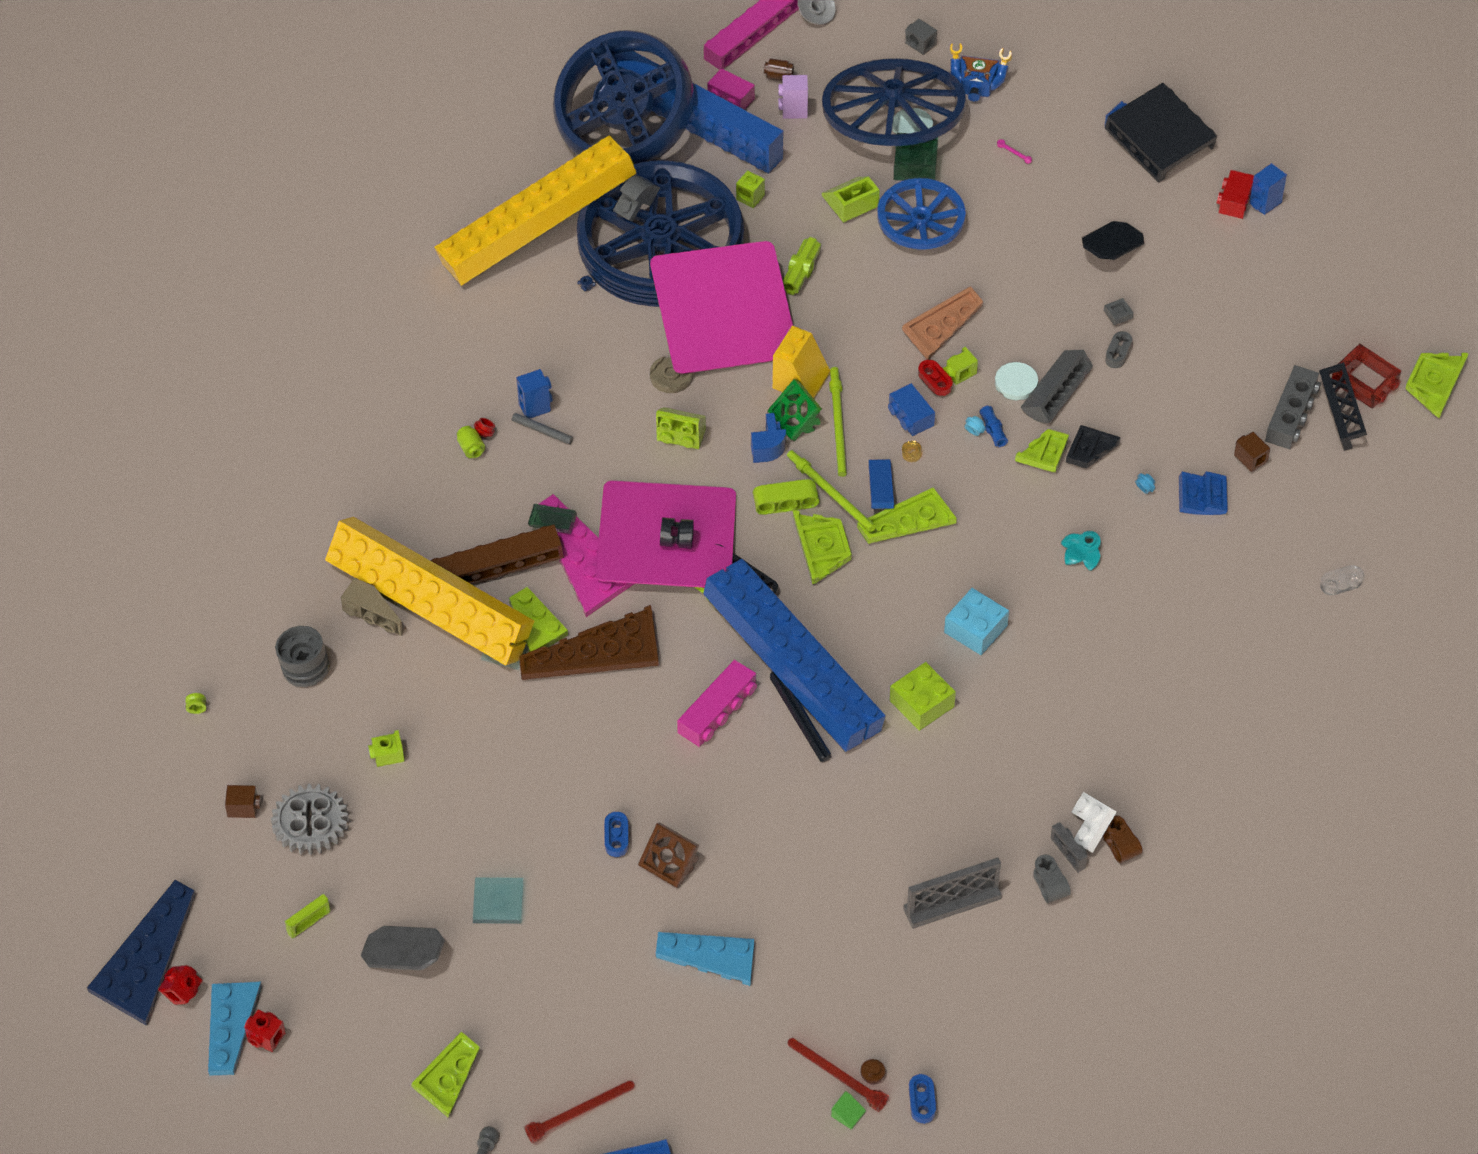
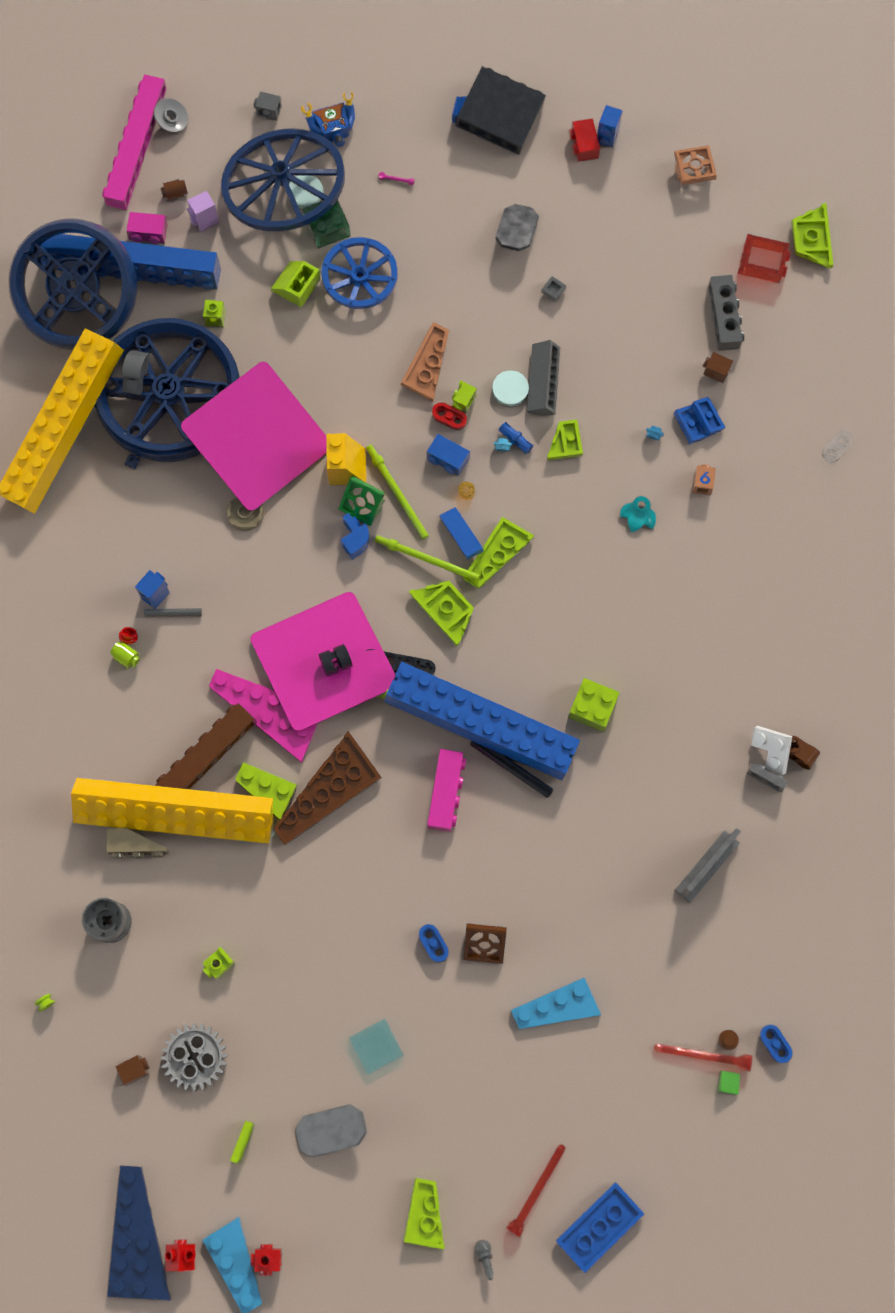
camera: 30 degrees left, 20 degrees up
(547, 515) = (230, 693): clear green tile -> none
(680, 427) = (282, 560): lime slope -> none
(785, 496) = (395, 580): lime beam -> none
(801, 265) = (292, 364): lime piece -> none
(976, 621) = (598, 619): medium azure brick -> none
(1050, 879) = (770, 814): dark grey piece -> none
(1090, 446) = (596, 420): black wing -> none
(1114, 348) = (567, 323): dark grey beam -> none
(1172, 547) = (704, 479): none -> nougat brick
(1333, 245) = (708, 163): none -> nougat piece
(1337, 410) = (757, 298): black fence -> none

